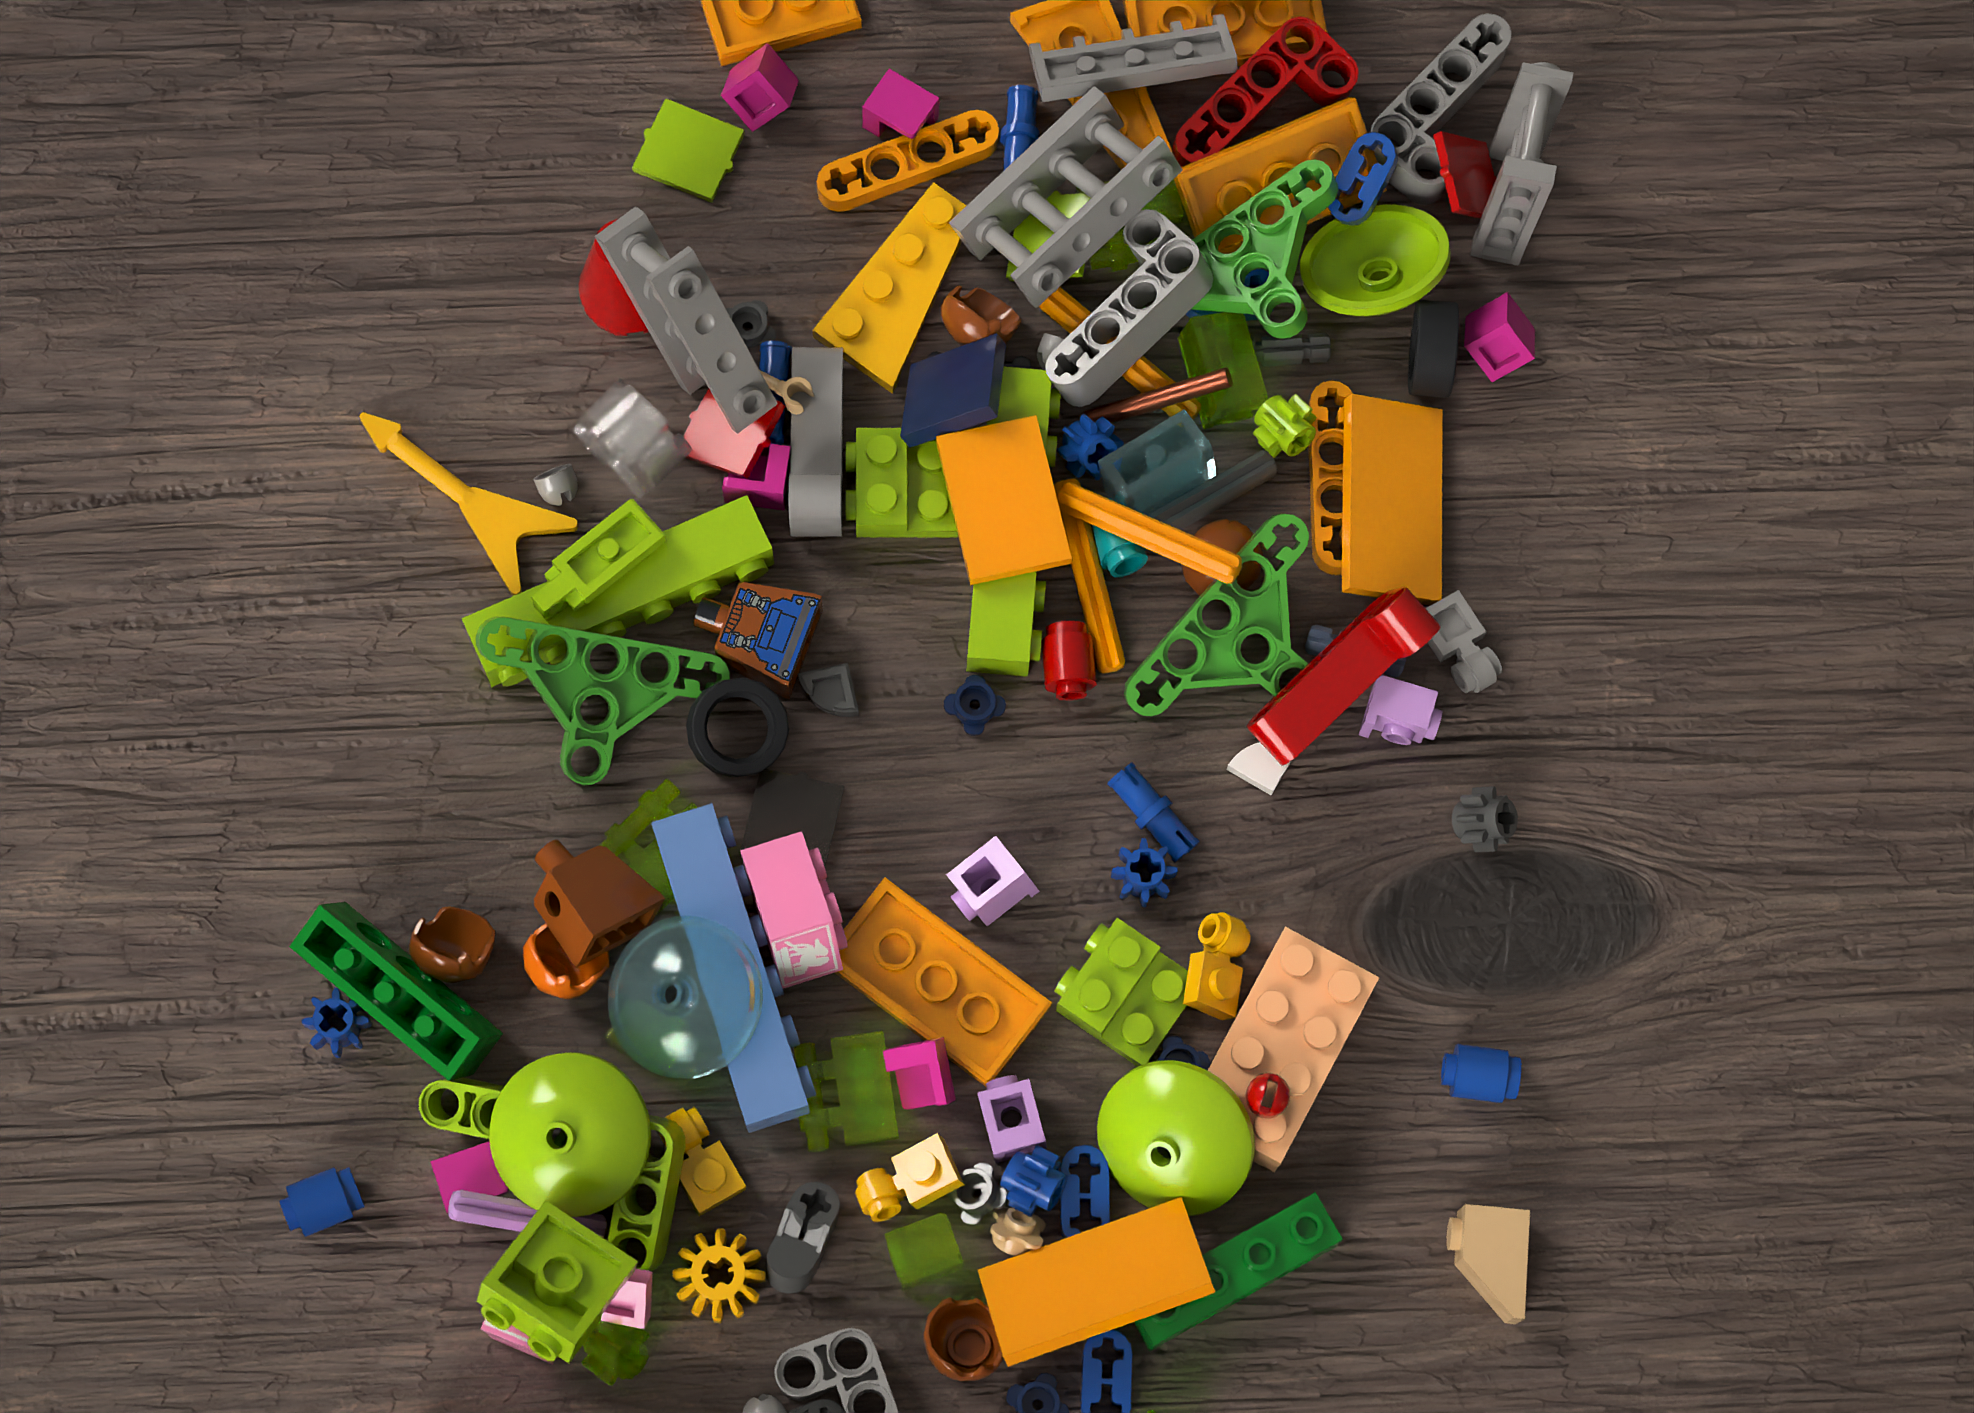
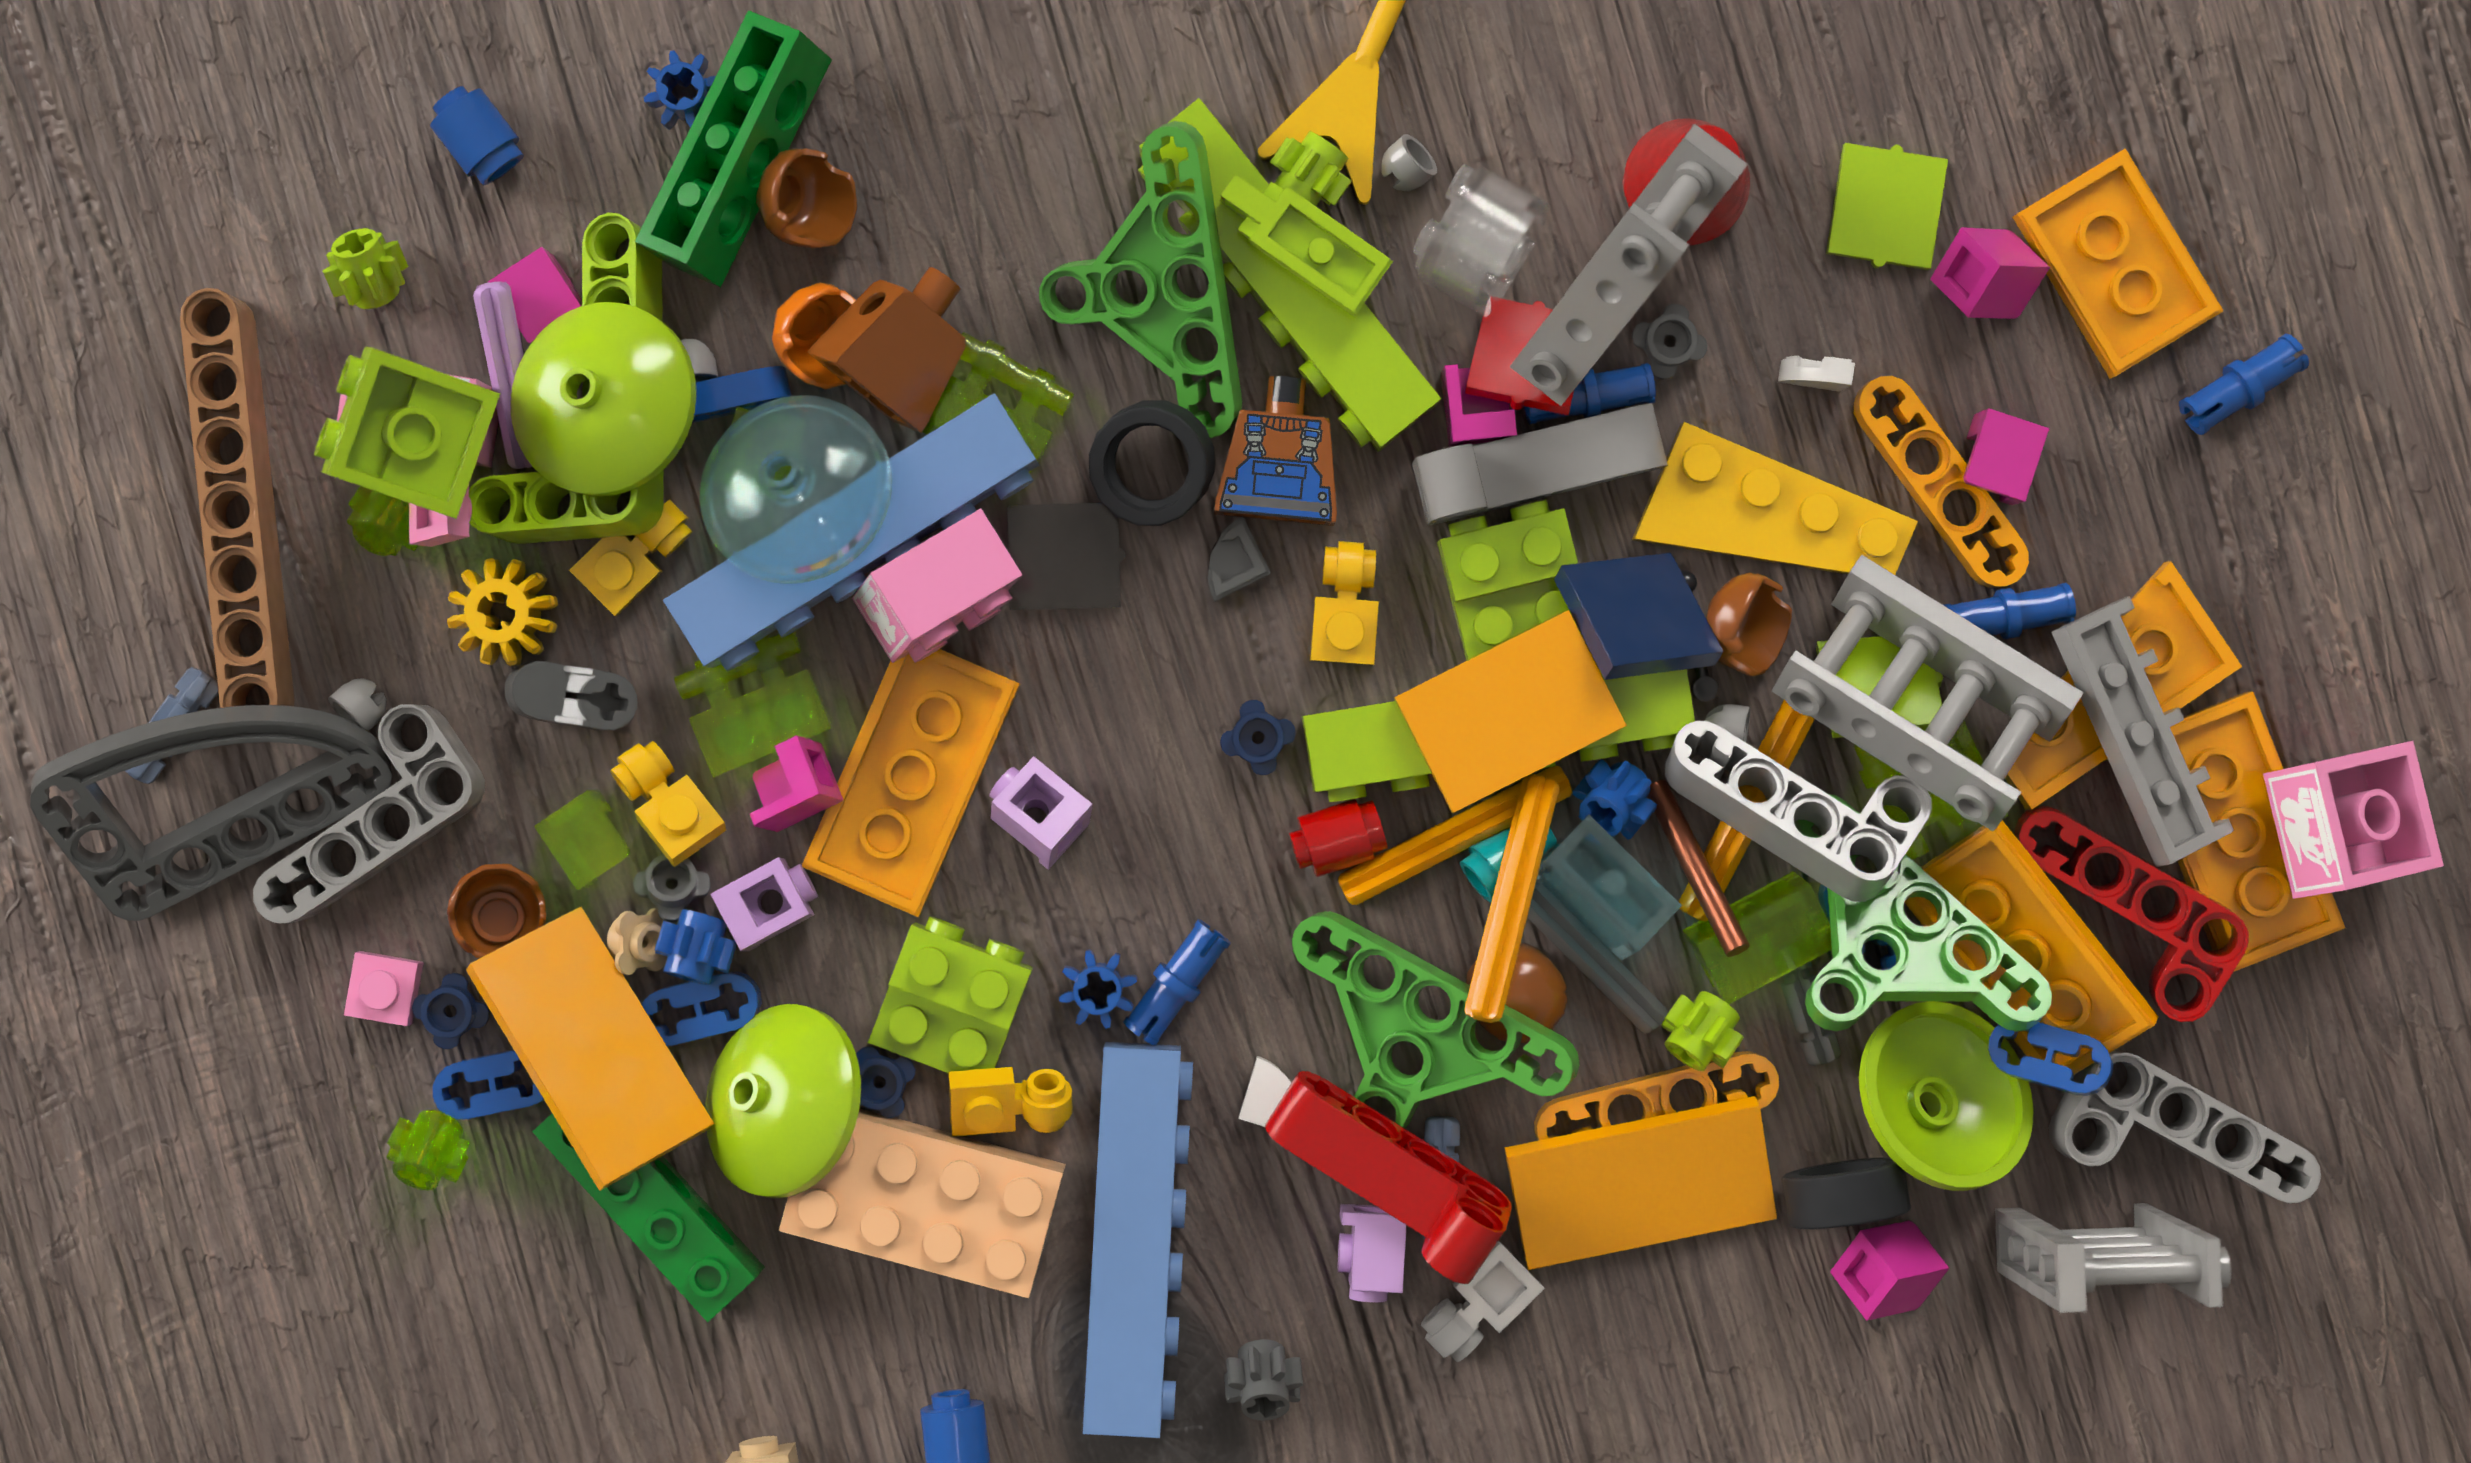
camera: 85 degrees right, 15 degrees up
(405, 1317) = (365, 268): none -> lime gear
(536, 550) = (1312, 169): none -> lime gear
(592, 1027) = (745, 389): none -> blue beam
(787, 389) = (1589, 403): tan hand -> none
(807, 215) = (1829, 374): none -> white tile
(902, 619) = (1345, 626): none -> yellow plate
(1257, 1090) = (848, 1186): red hinge -> none
(1351, 893) = (1133, 1240): none -> medium blue brick
(1466, 172) = (2091, 1186): red piece -> none

